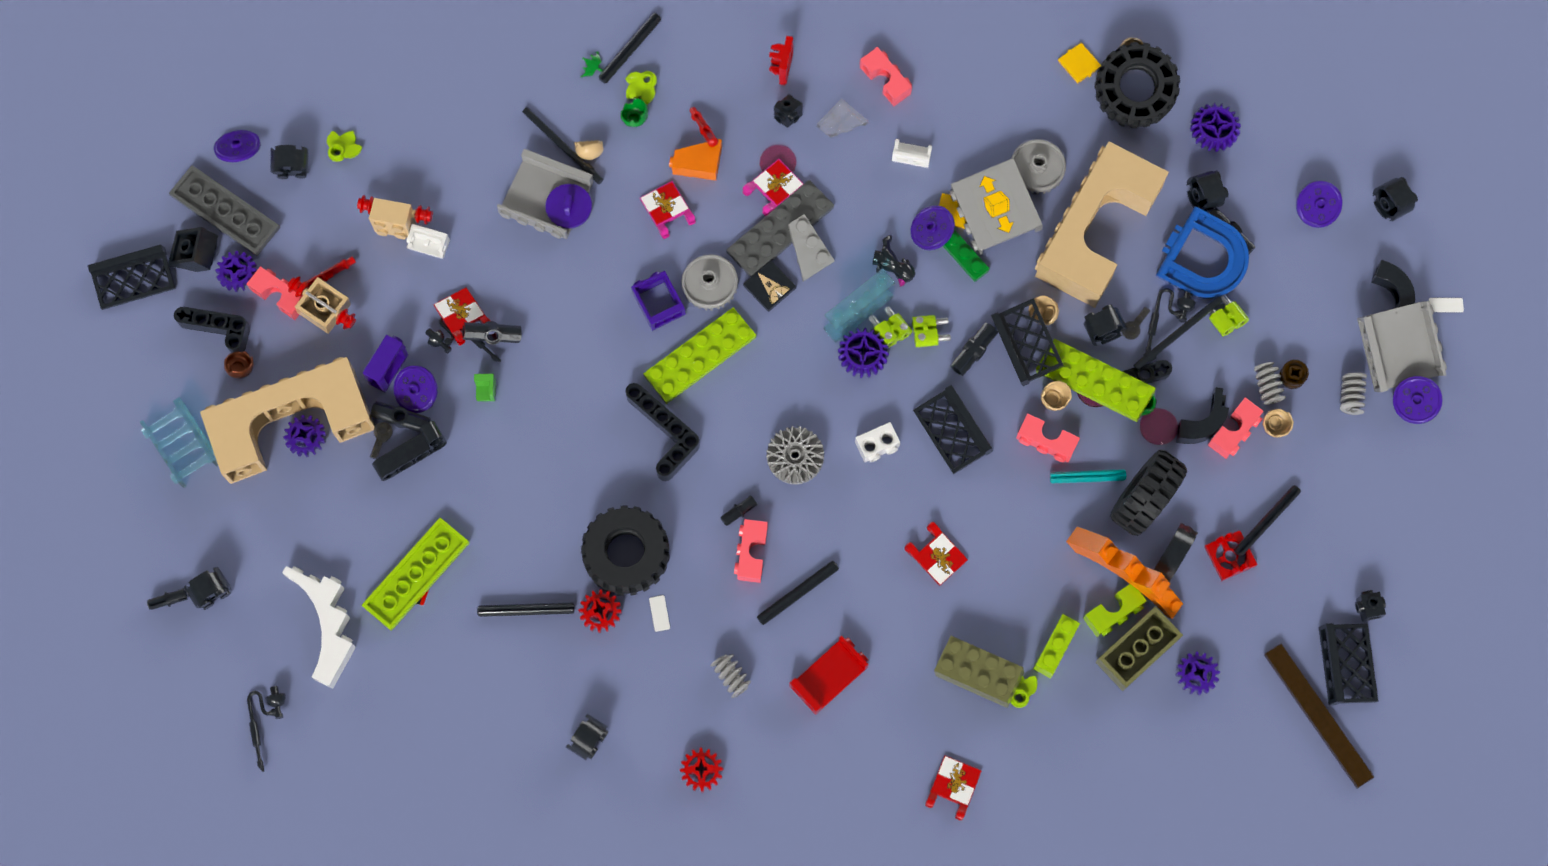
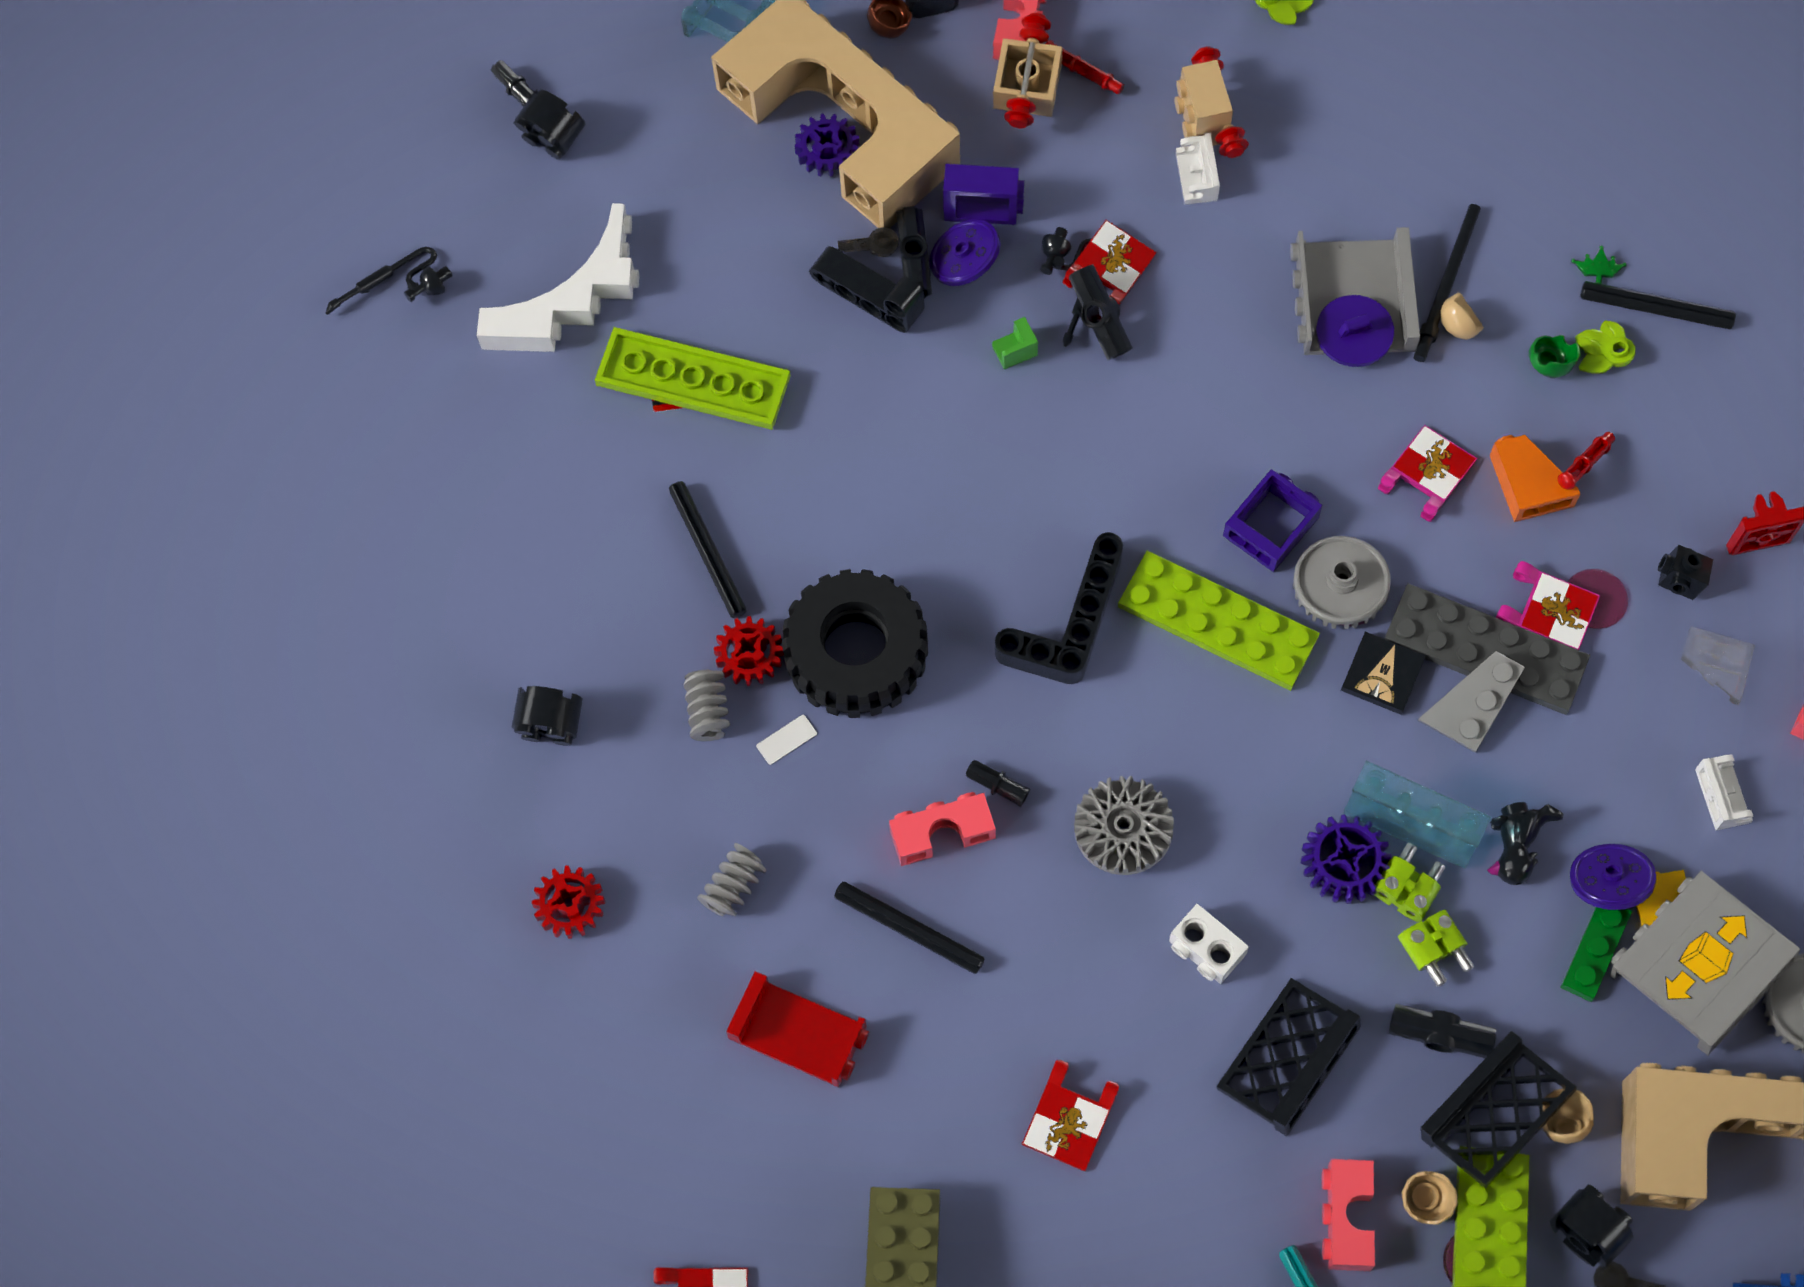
camera: 70 degrees right, 5 degrees down
(620, 646) = (704, 705): none -> light grey piece

